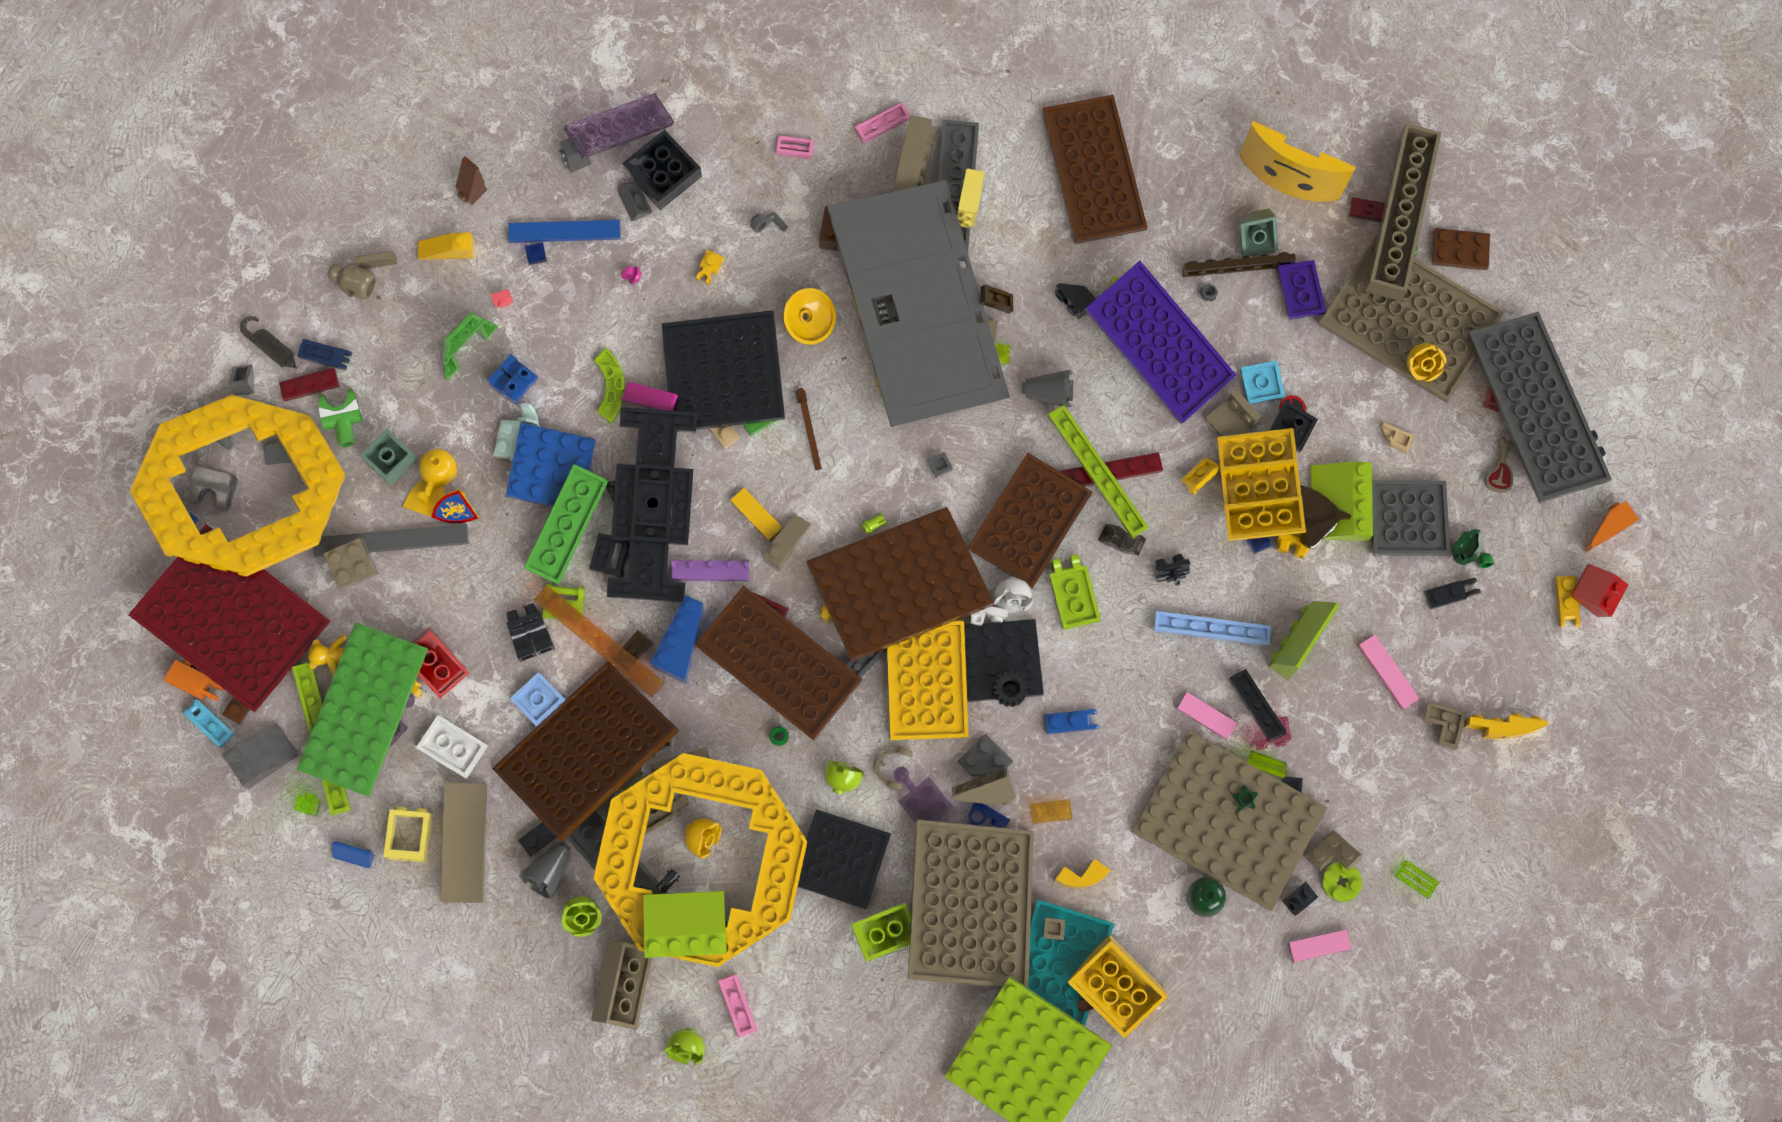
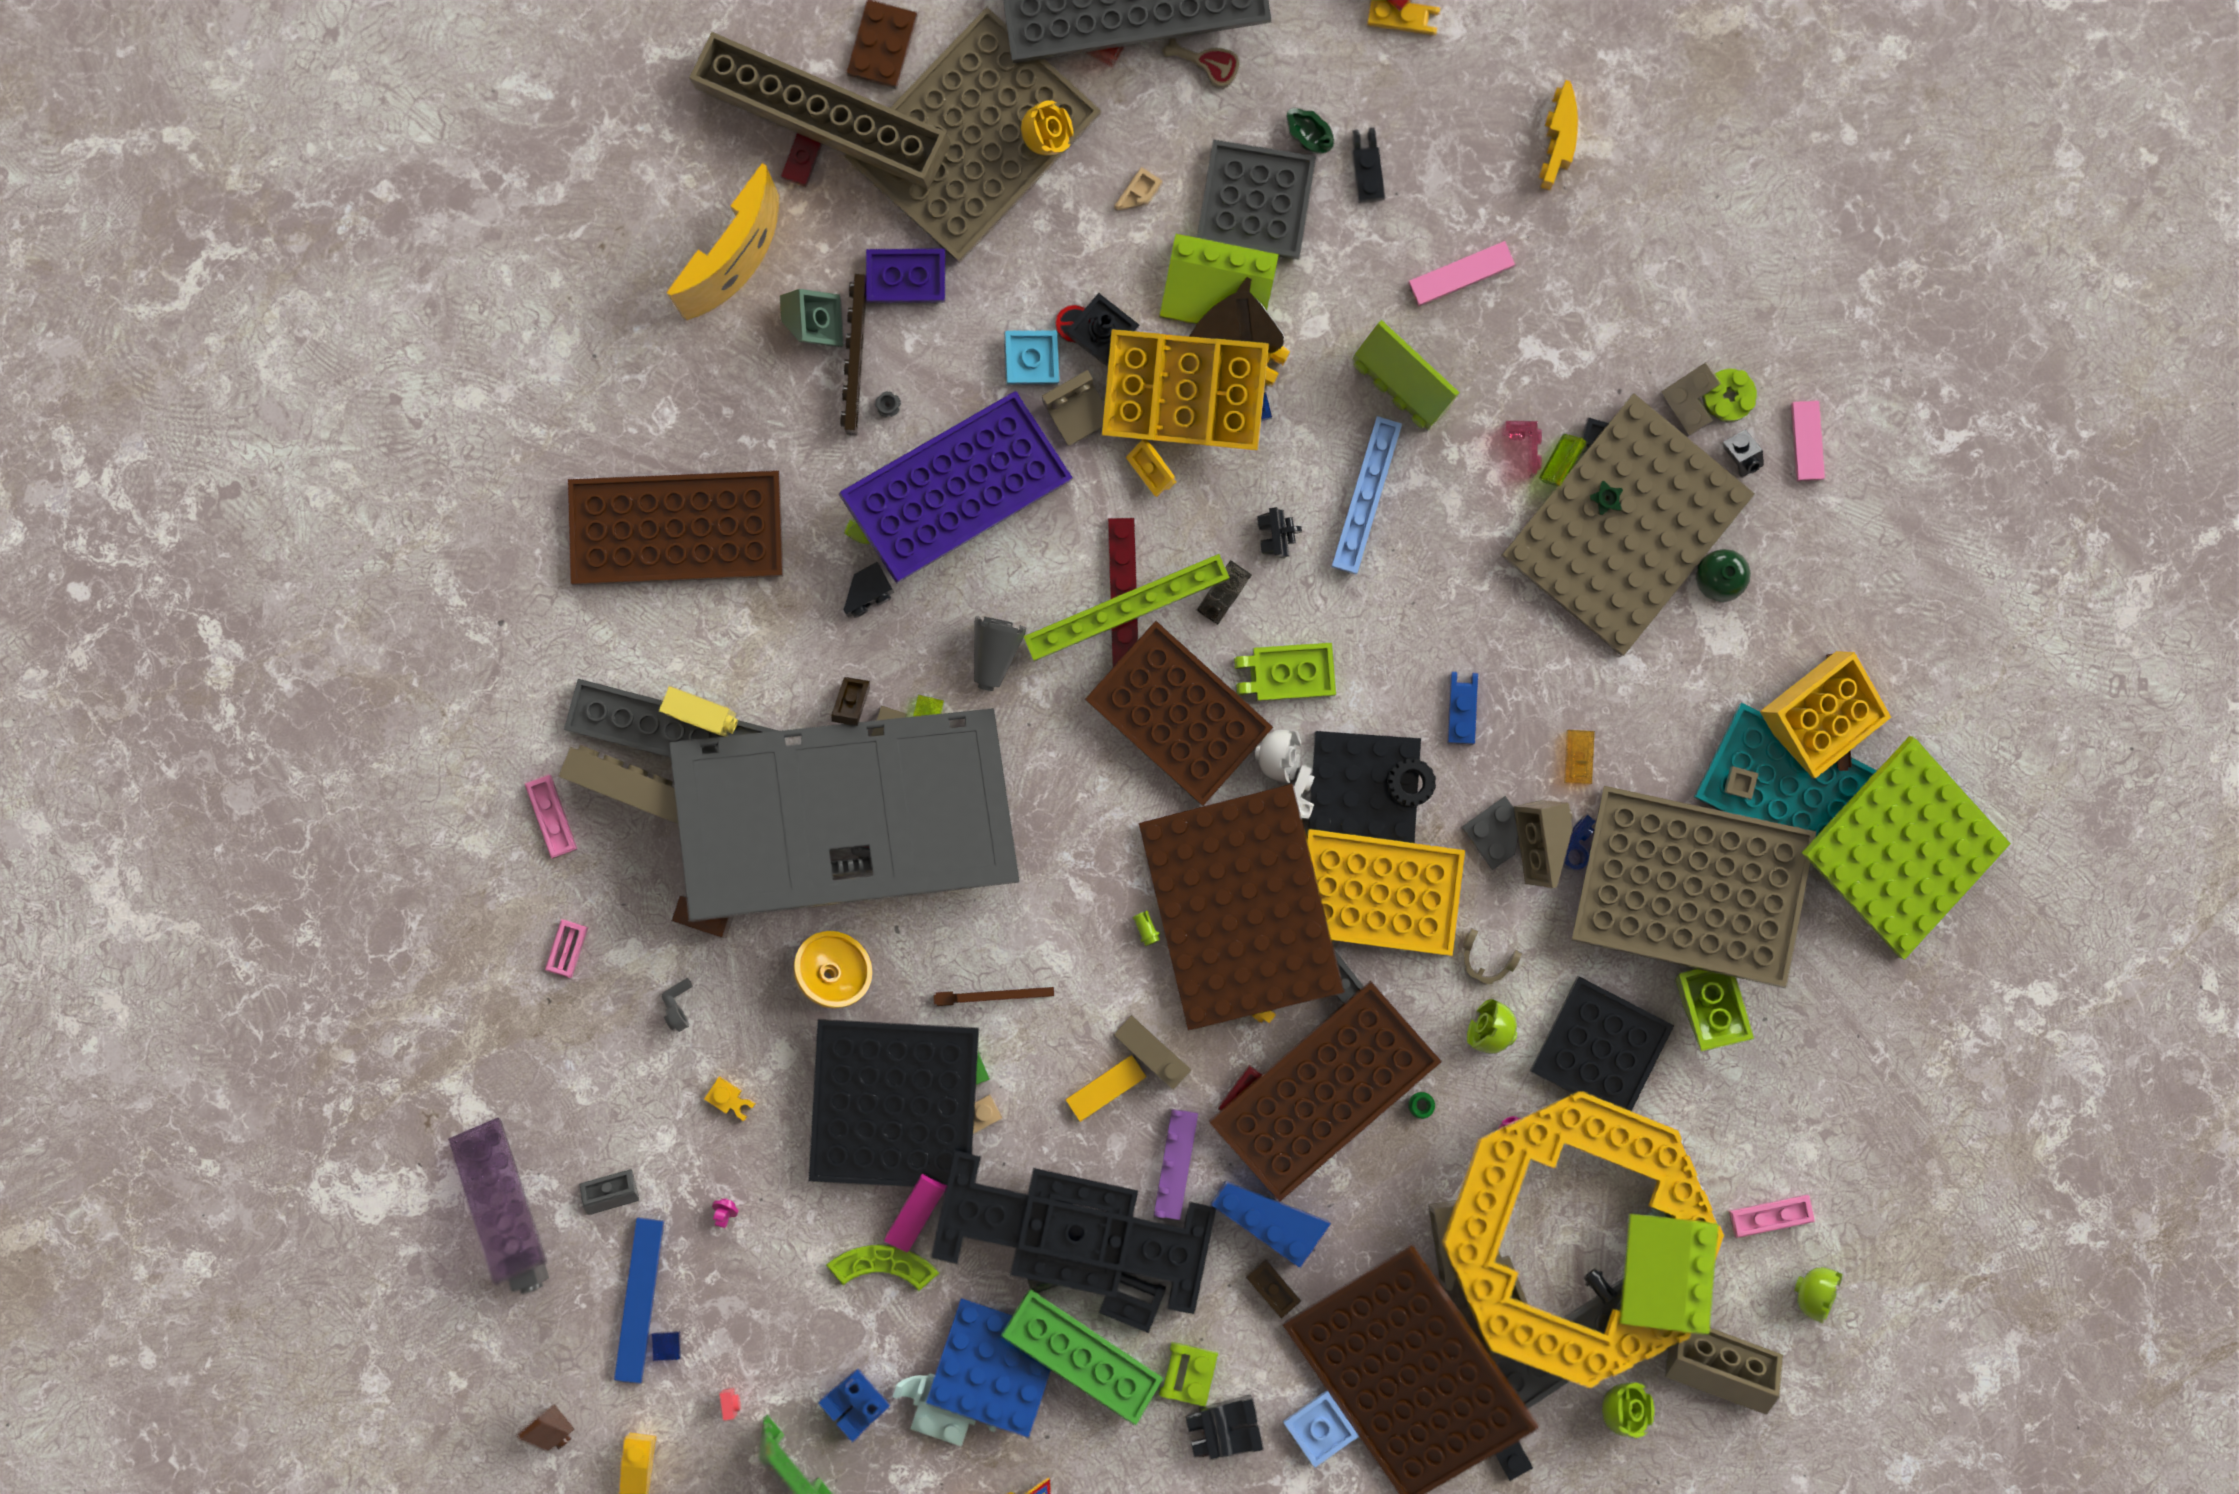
camera: 80 degrees left, 10 degrees up
(547, 870) = (1560, 1447): dark grey cone -> none
(599, 641) = (1254, 1333): clear orange tile -> none
(663, 169) = (572, 1146): black slope -> none
(701, 836) = (1544, 1232): yellow cylinder -> none
(923, 801) = (1542, 924): clear purple plate -> none
(940, 465) = (1077, 822): dark grey plate -> none
(1092, 876) = (1675, 720): yellow brick -> none
(1206, 716) = (1483, 526): bright pink tile -> none
(1257, 705) = (1484, 456): black plate -> none
(1435, 883) = (1756, 281): clear neon green tile -> none
(1450, 722) = (1541, 207): dark tan plate -> none
(1485, 560) = (1330, 111): green hinge -> none

